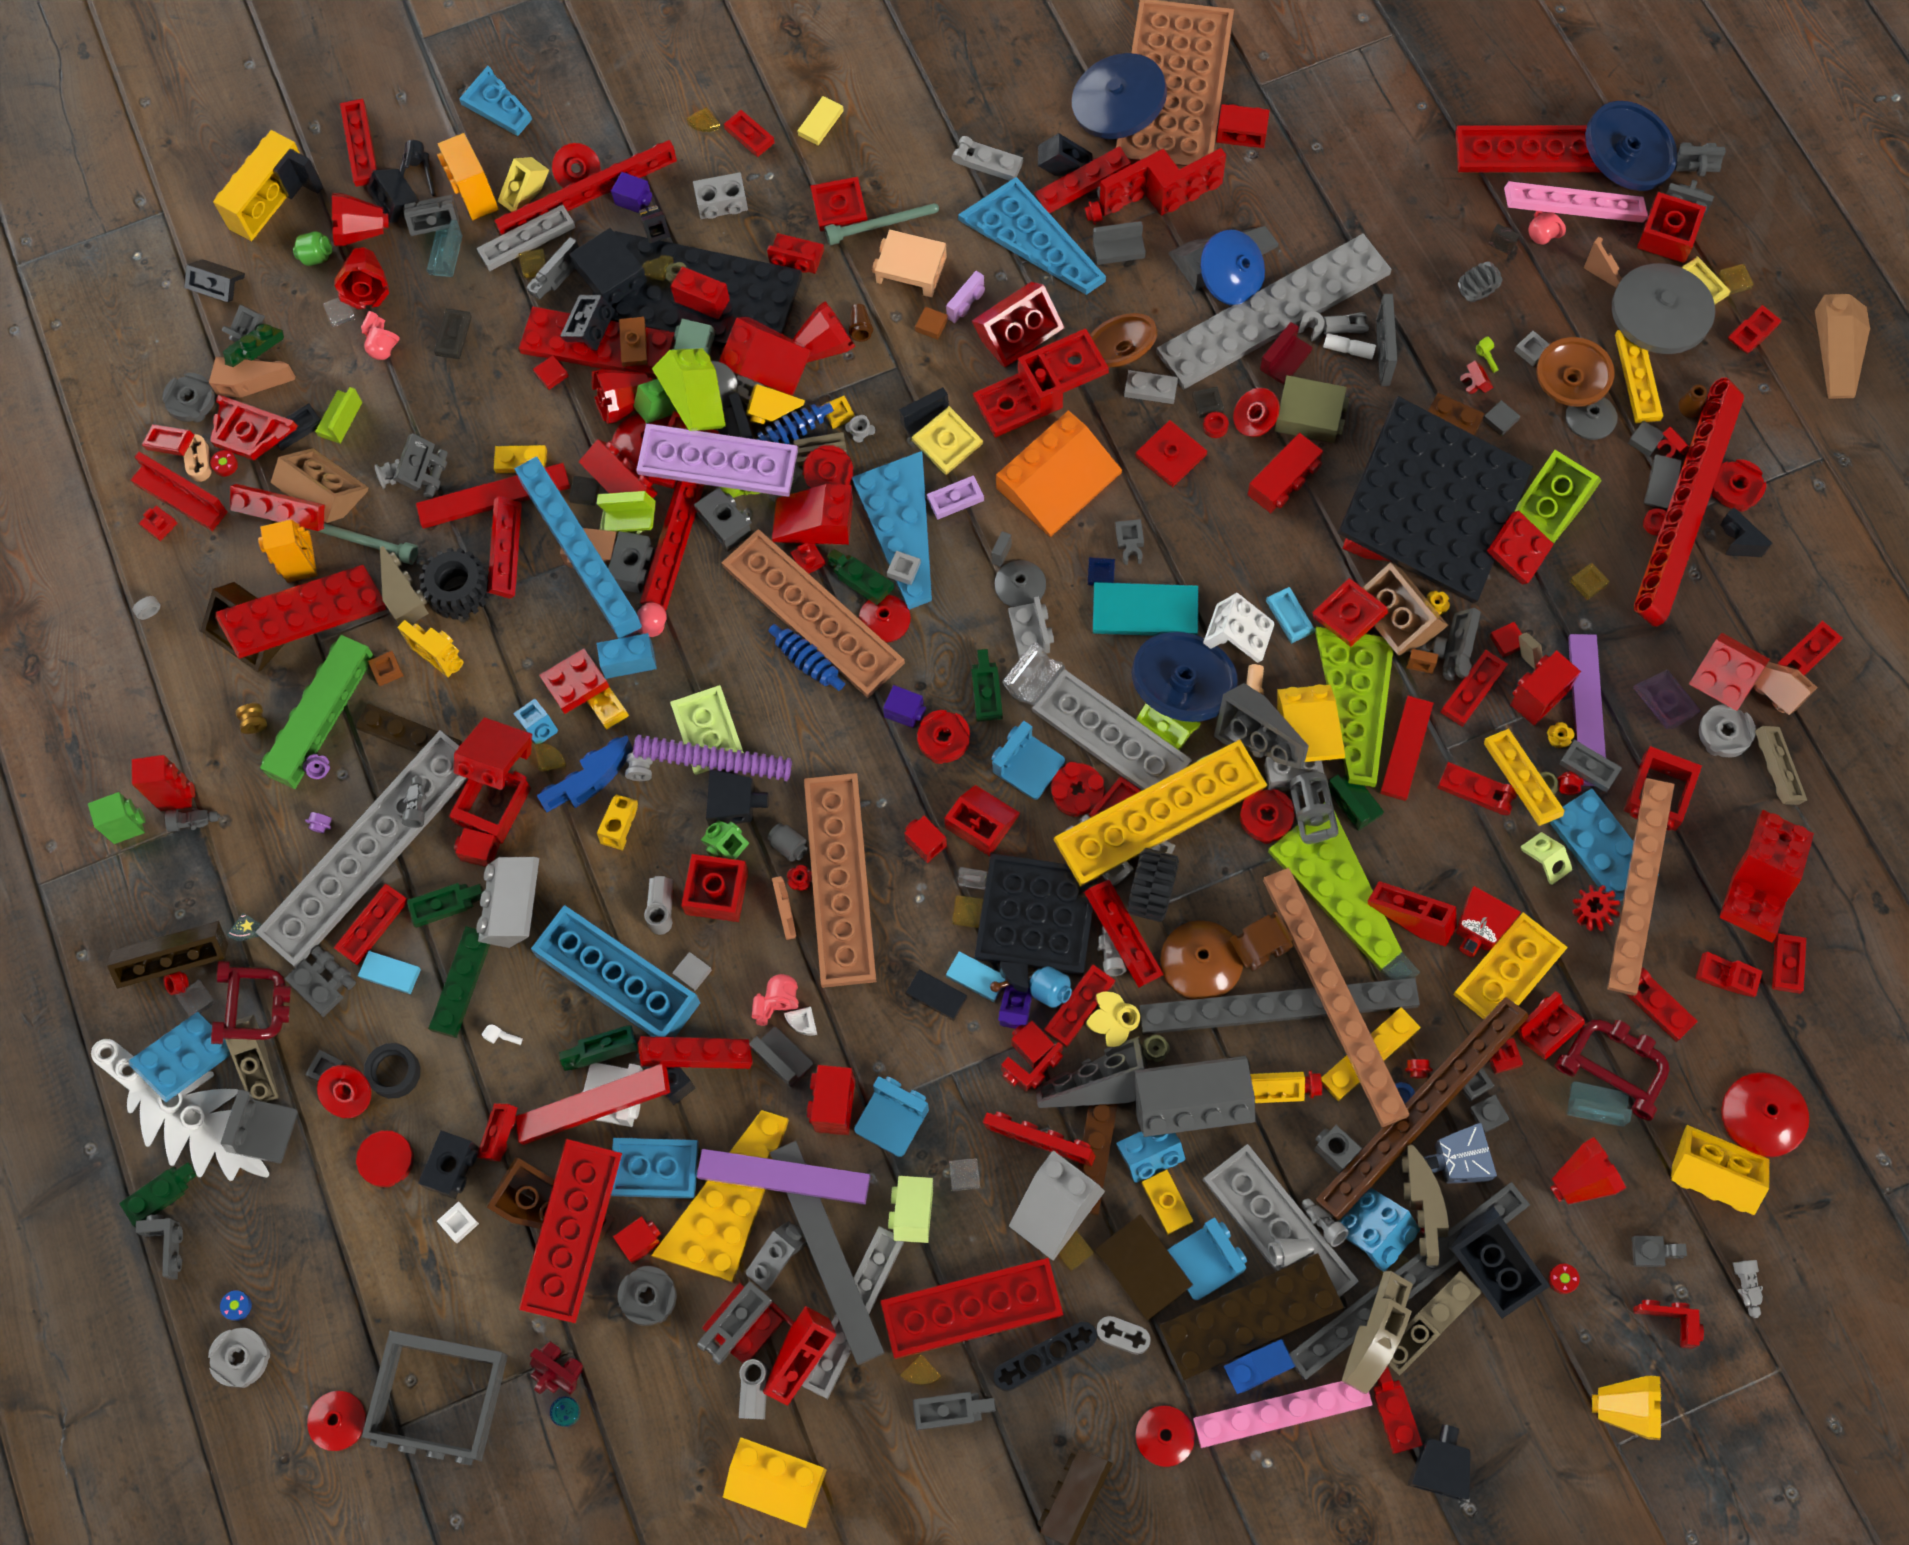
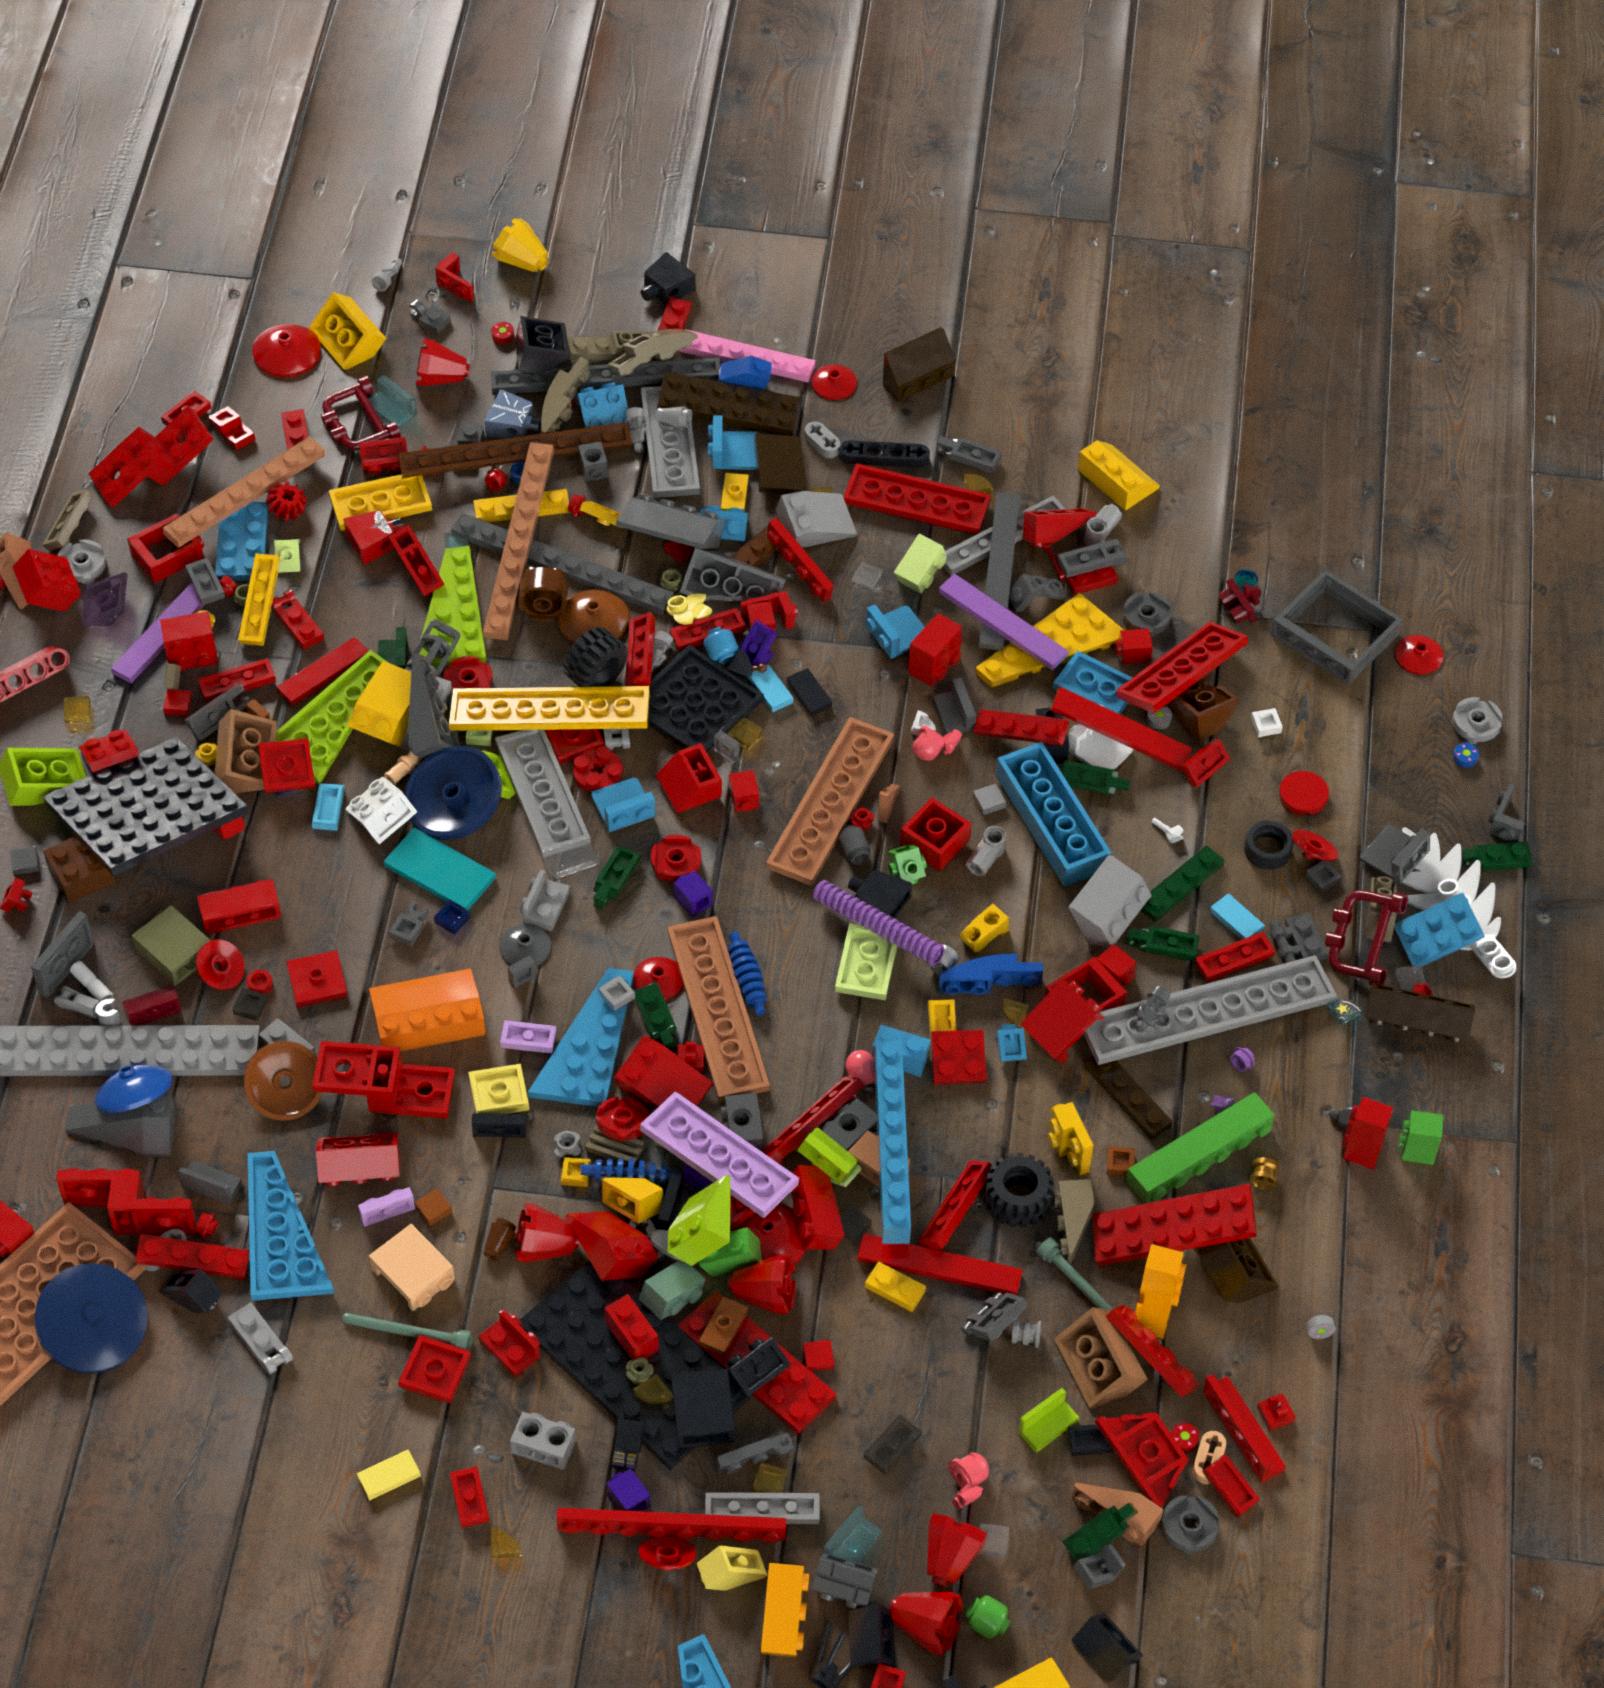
camera: 155 degrees left, 15 degrees down
(445, 1149) = (1255, 759): black brick -> none

